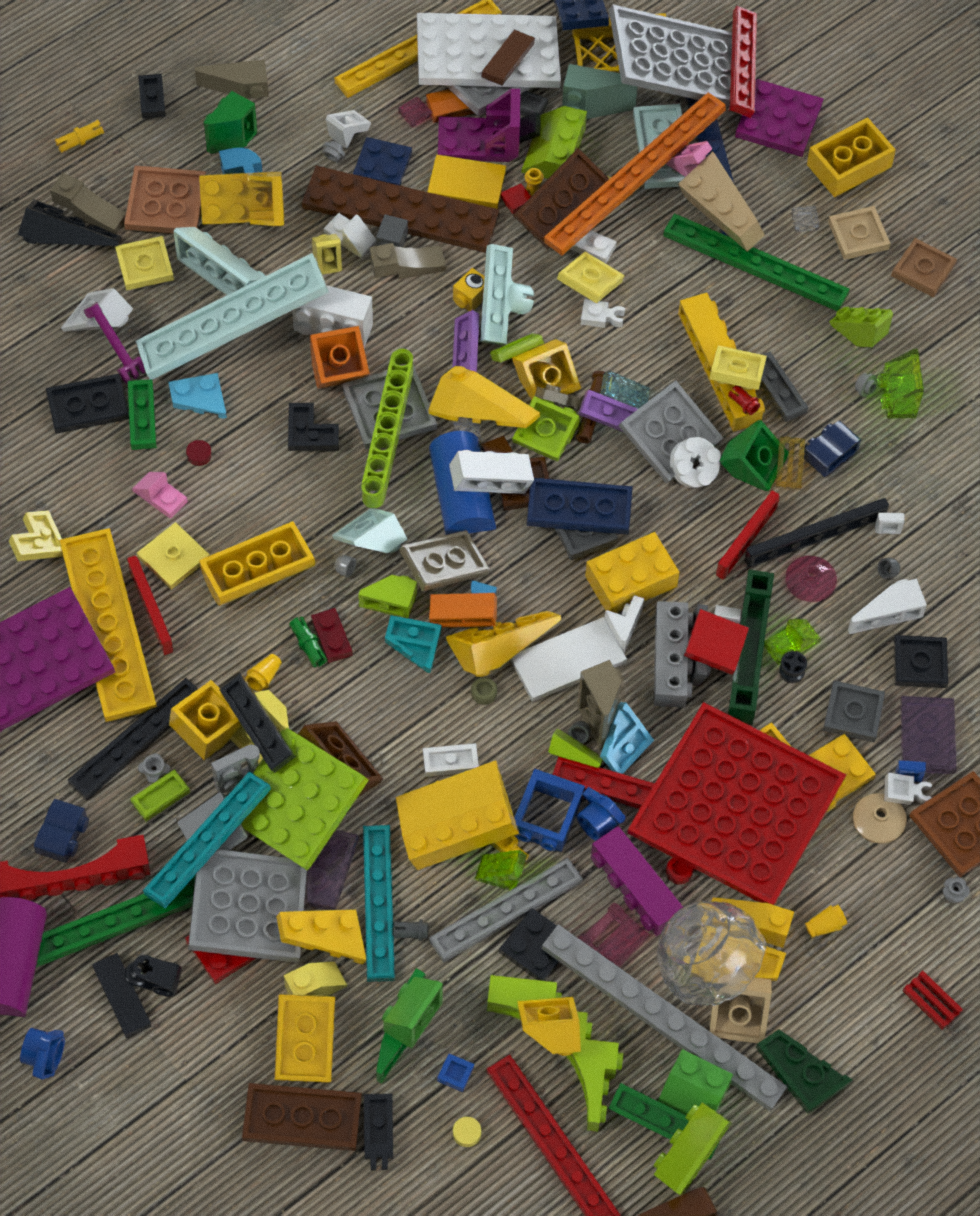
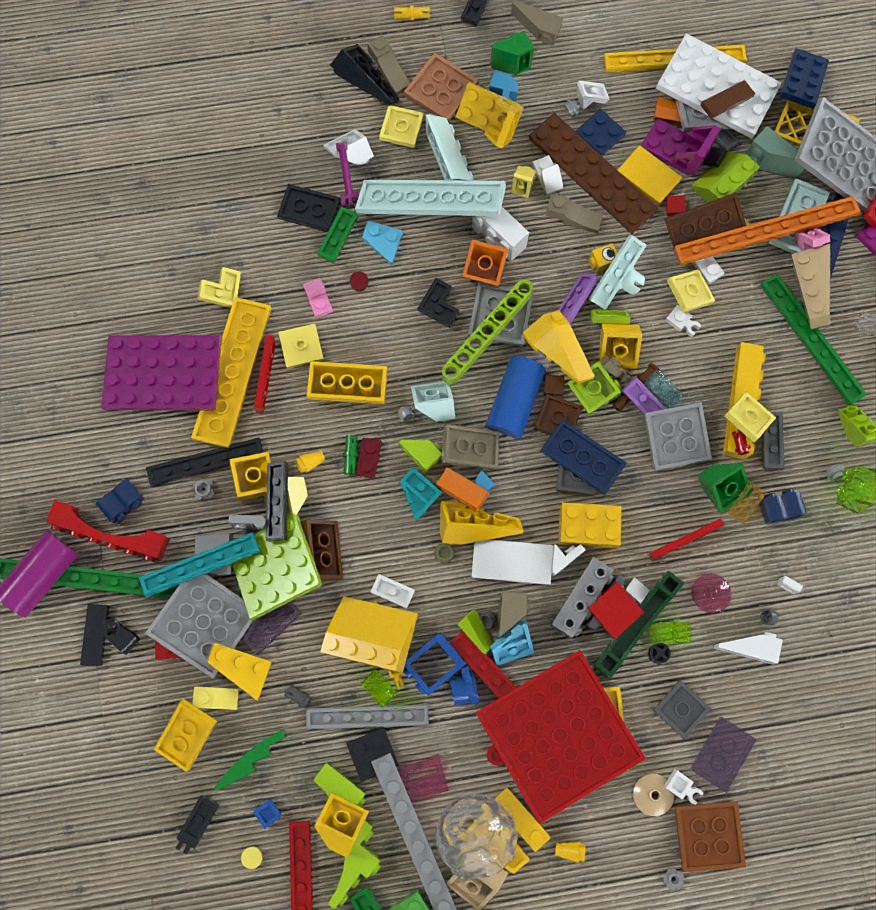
camera: 30 degrees right, 15 degrees up
(43, 1051) = (21, 648): blue piece -> none
(160, 795) = (197, 510): lime tile -> none
(302, 1117) = (155, 786): reddish brown plate -> none
(378, 903) = (289, 664): teal tile -> none
(393, 231) = (575, 188): dark grey brick -> none
(413, 1010) = (256, 764): bright green slope -> none
(414, 111) = (644, 105): clear pink tile -> none
(491, 472) = (536, 402): white brick -> none
(534, 178) = (694, 198): yellow pin -> none
(635, 879) = (462, 751): magenta brick -> none
(683, 468) = (691, 469): white plate -> none
(815, 533) = (735, 564): black tile -> none
(845, 758) = (652, 742): yellow plate -> none
(911, 768) = (694, 776): blue tile -> none
(920, 661) = (750, 698): black plate -> none

